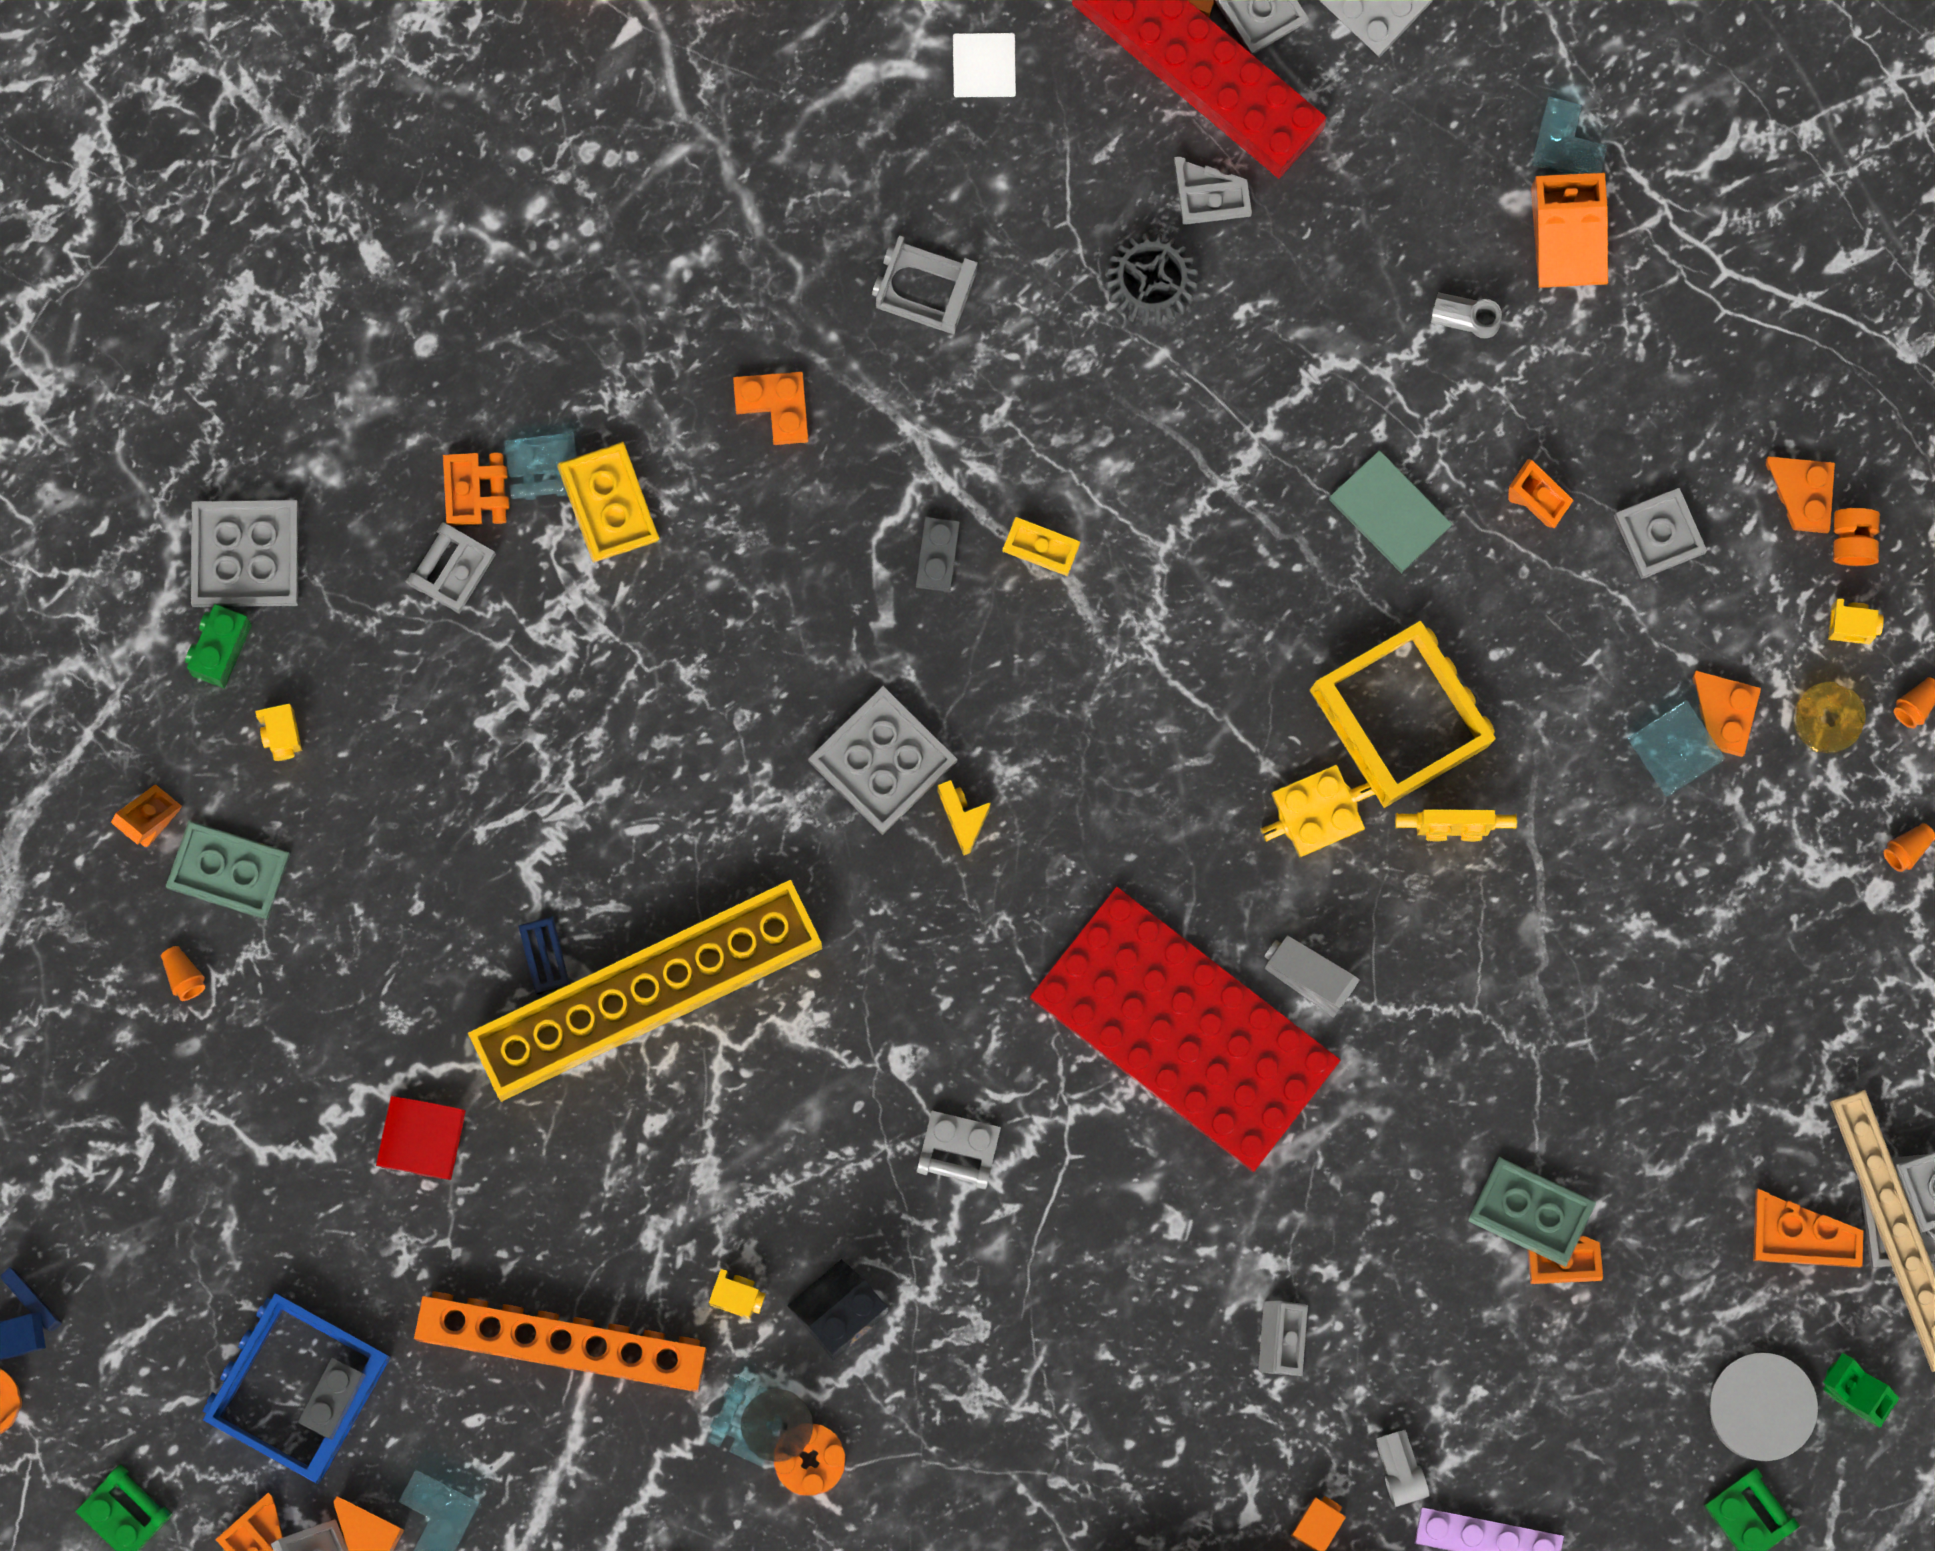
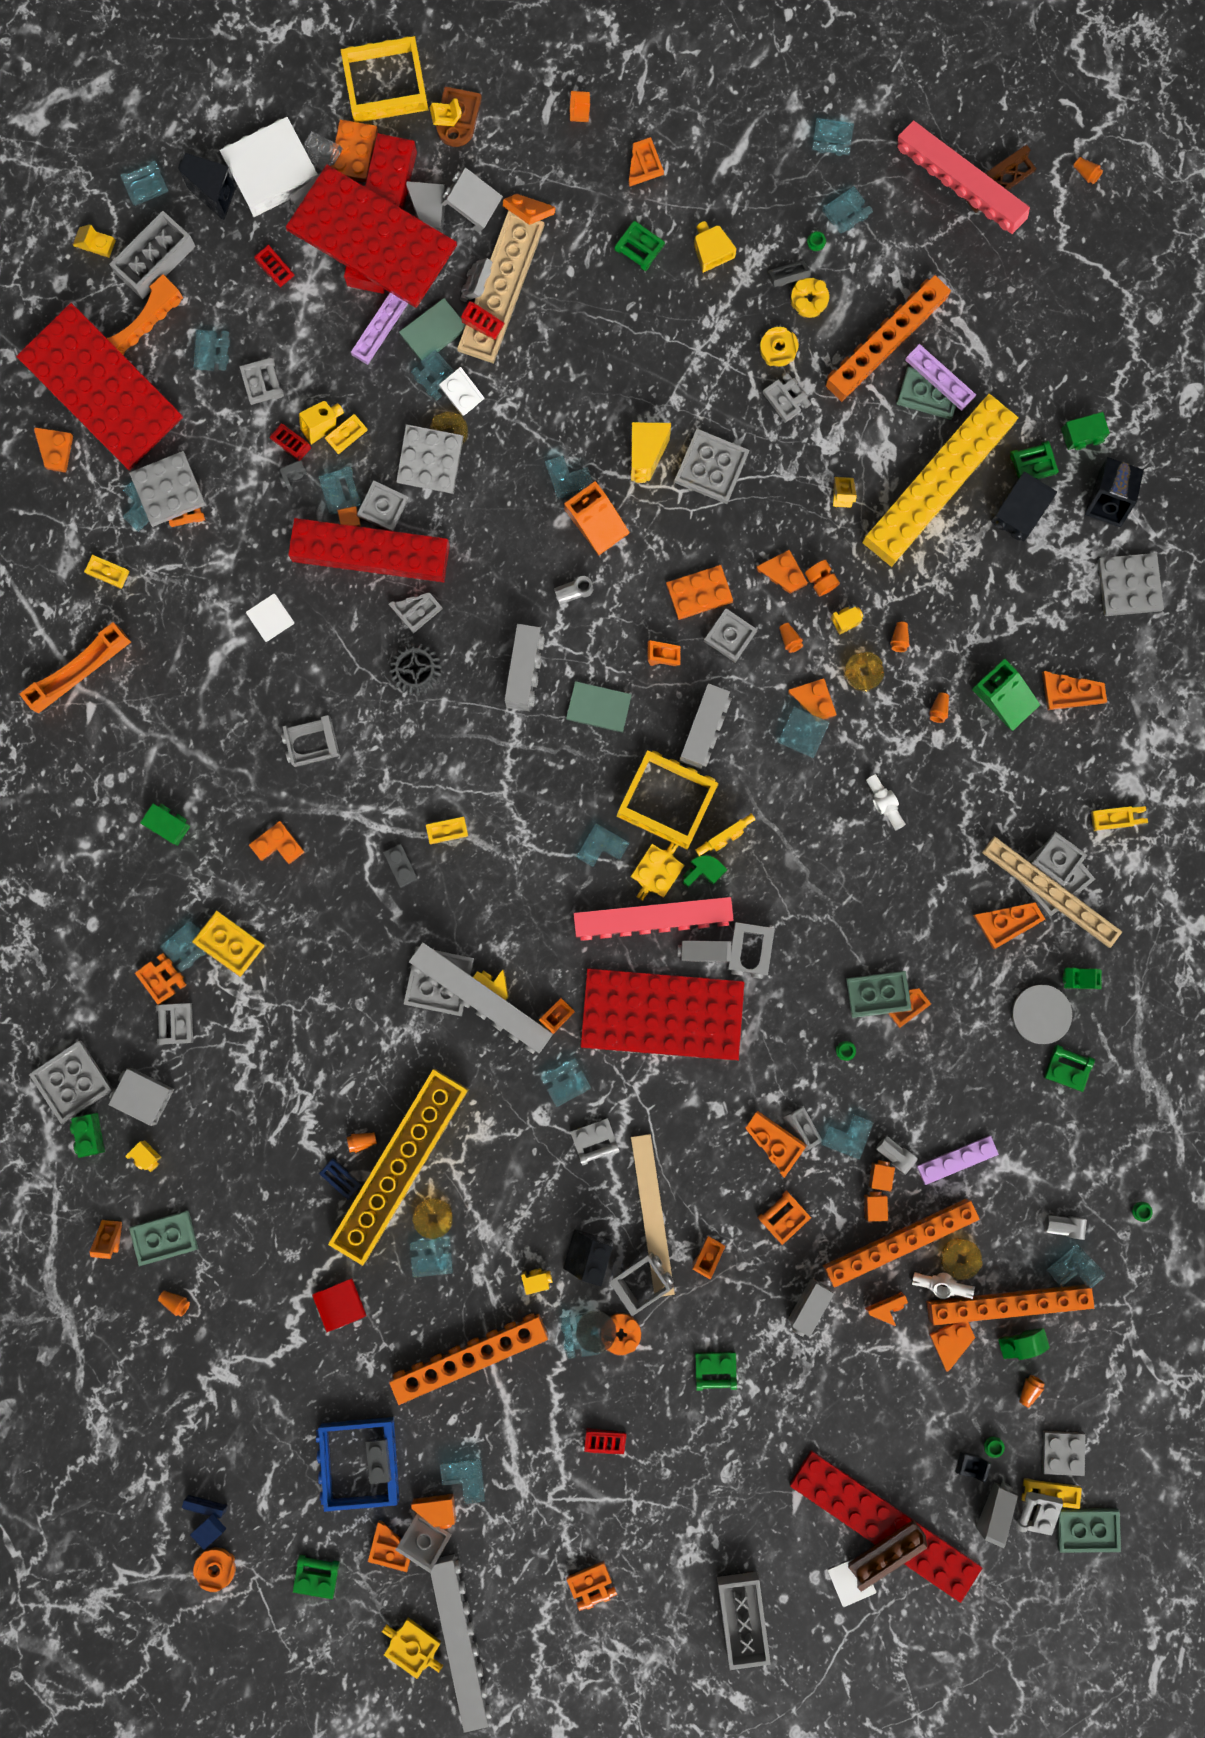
camera: 30 degrees left, 5 degrees up
(332, 640) = (140, 1096): none -> light grey brick
(597, 1168) = (432, 1263): none -> clear light blue plate
(611, 919) = (360, 1141): none -> orange cone
(626, 1091) = (432, 1206): none -> clear yellow plate
(632, 267) = (165, 824): none -> green brick
(856, 1401) = (626, 1294): none -> light grey window
(929, 823) = (481, 998): none -> light grey brick
(971, 1044) = (569, 1088): none -> clear light blue plate
(972, 1316) = (651, 1205): none -> tan tile
(1017, 1430) = (708, 1257): none -> orange slope
(1024, 926) = (556, 1015): none -> orange slope
(1169, 1462) = (788, 1223): none -> orange plate
(1232, 1331) = (776, 1142): none -> orange wing
(1261, 711) = (599, 841): none -> clear light blue plate
(1265, 875) = (653, 918): none -> coral brick
(1315, 379) = (523, 667): none -> light grey brick
(1344, 1407) = (853, 1141): none -> clear light blue plate
(1358, 1484) = (881, 1176): none -> orange brick
(1380, 1056) = (763, 966): none -> light grey panel
(1397, 852) = (707, 866): none -> green brick
(1426, 1264) = (845, 1050): none -> green plate
(1529, 642) = (706, 722): none -> light grey brick
(1655, 439) = (699, 592): none -> orange plate
(1715, 176) = (647, 448): none -> yellow slope
(1732, 933) = (885, 802): none -> white pin
(1749, 596) = (790, 637): none -> orange cone
(1798, 264) = (711, 466): none -> light grey plate

